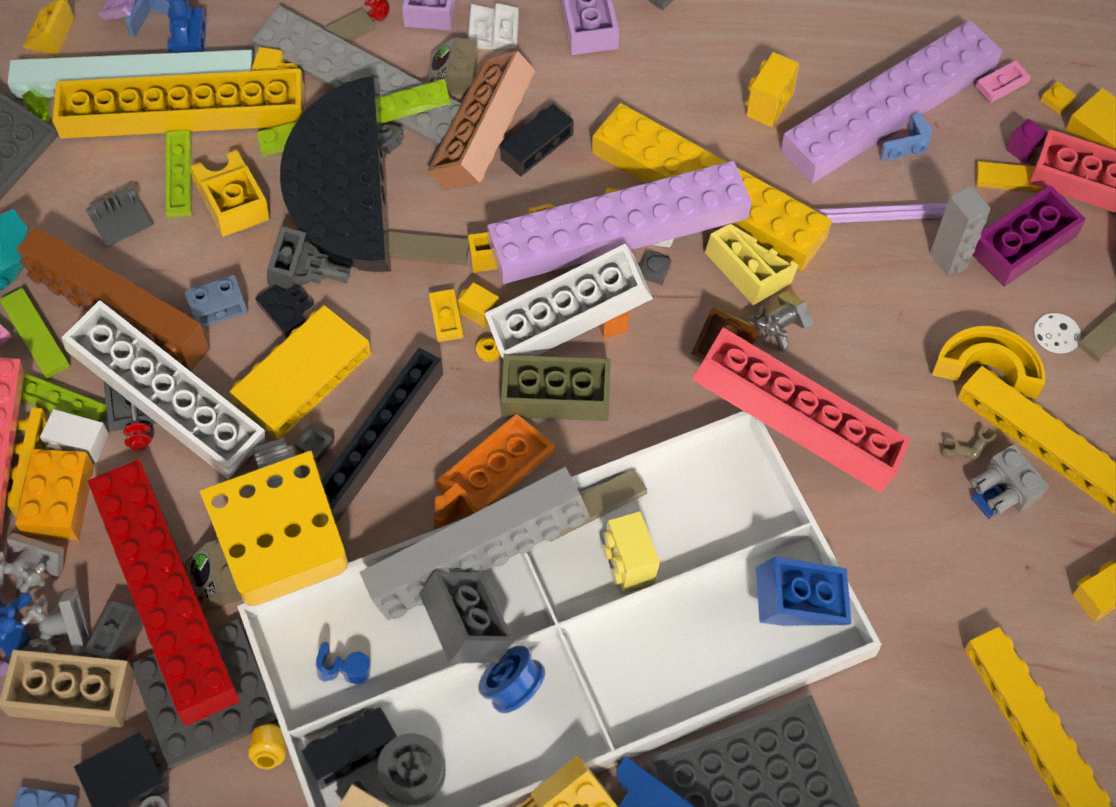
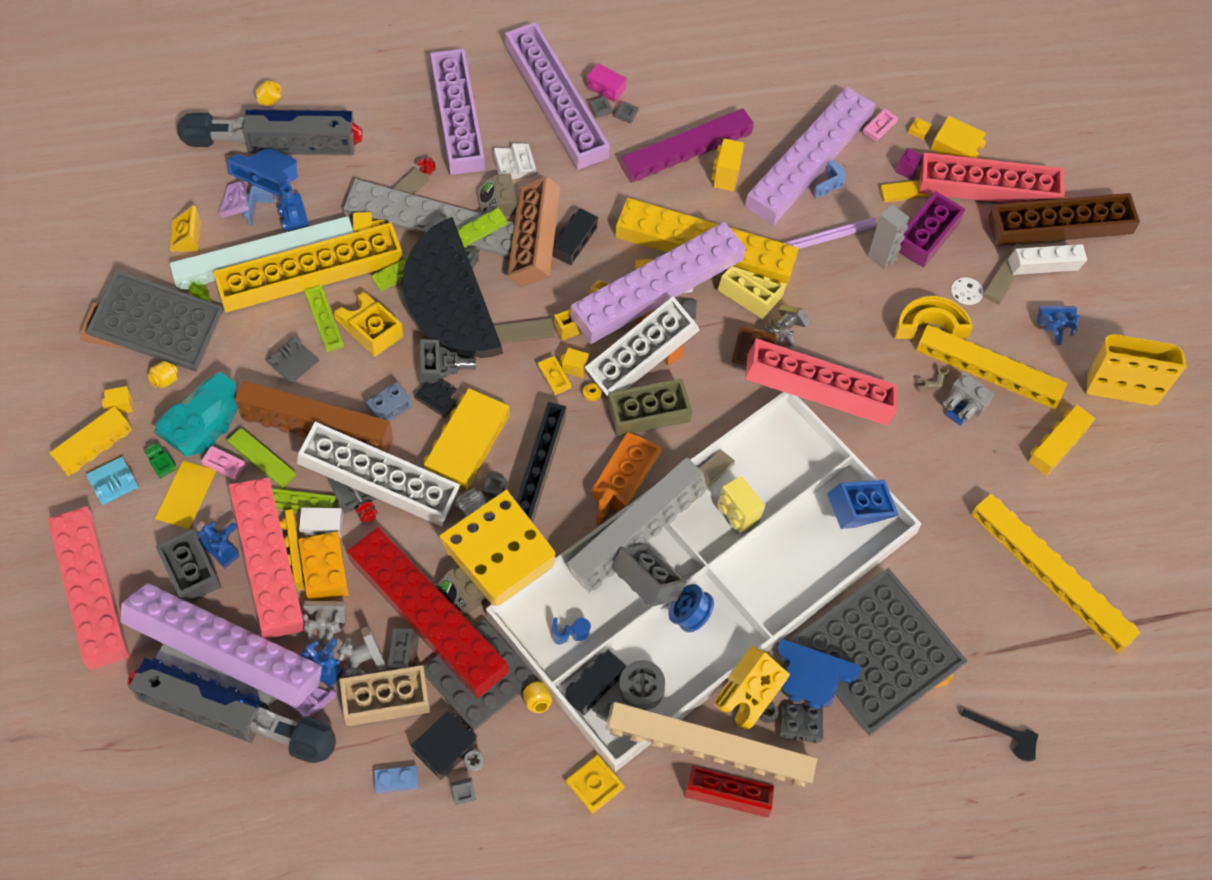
camera: 20 degrees left, 0 degrees up
(726, 52) = (686, 145): none -> magenta brick

